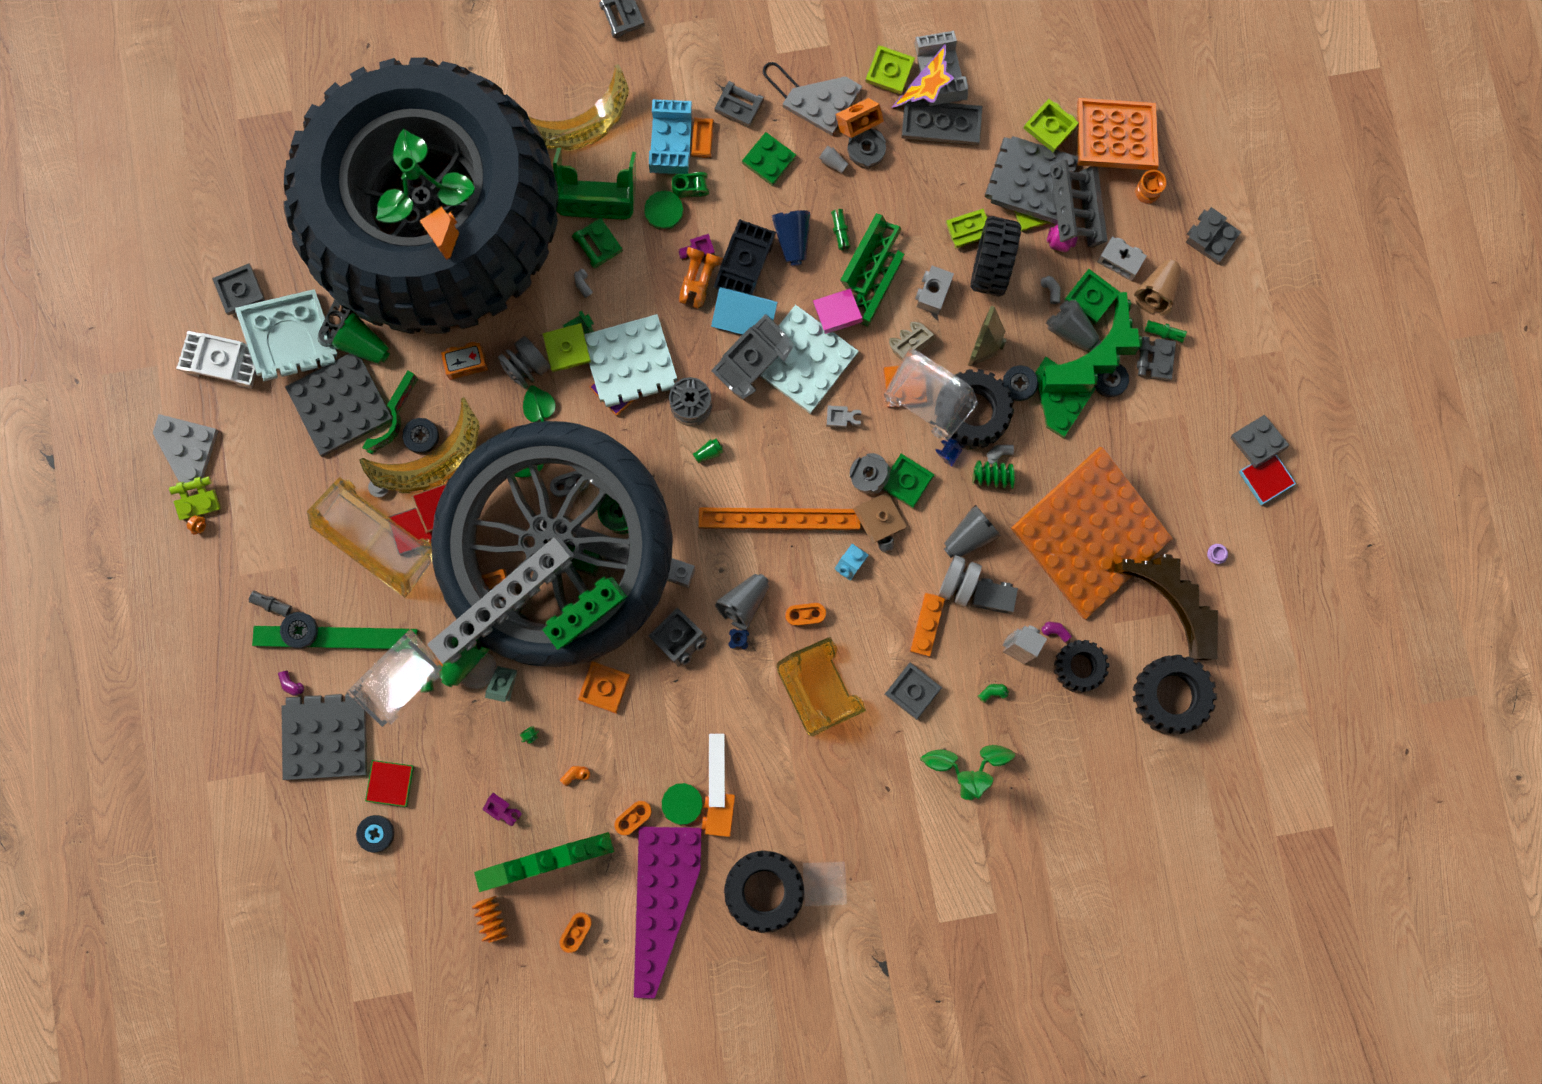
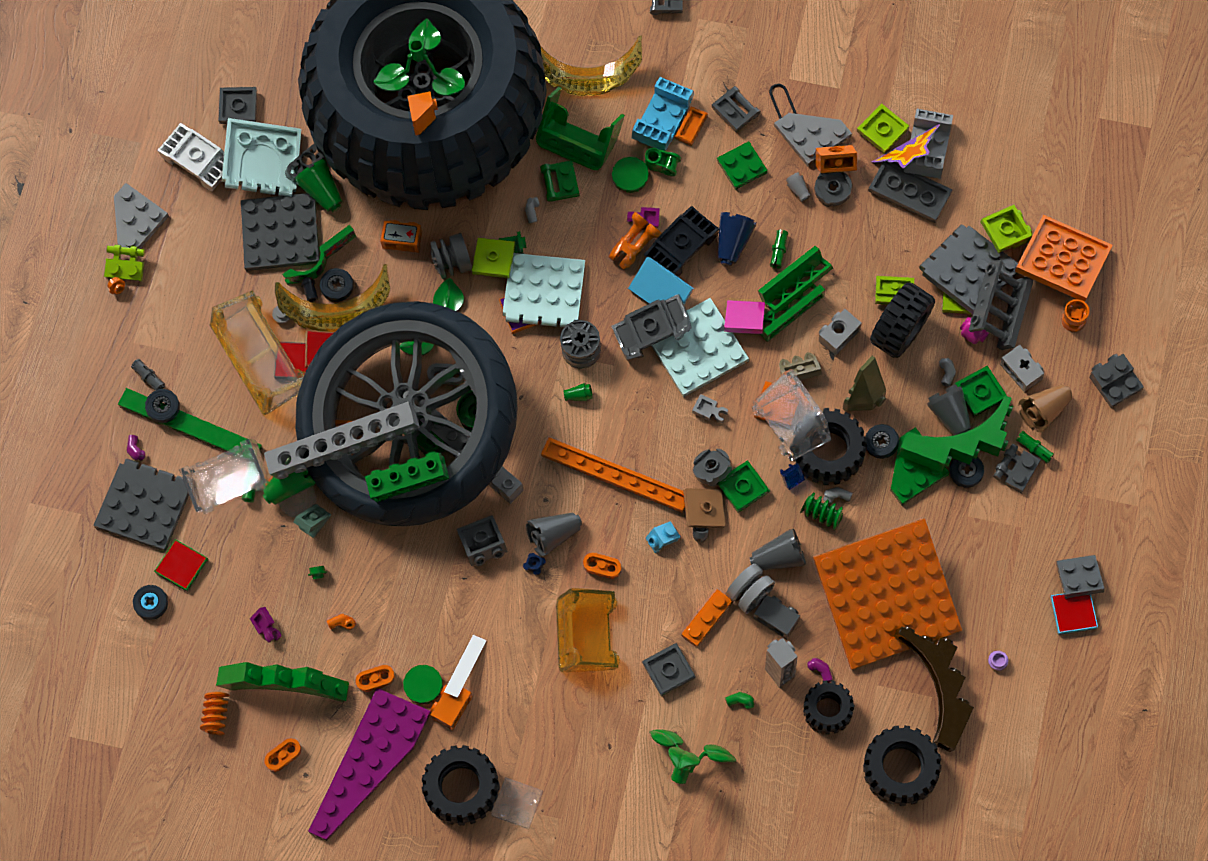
camera: 30 degrees right, 10 degrees down
(394, 449) = (309, 288): none -> black pin
(604, 687) = (399, 558): orange tile -> none

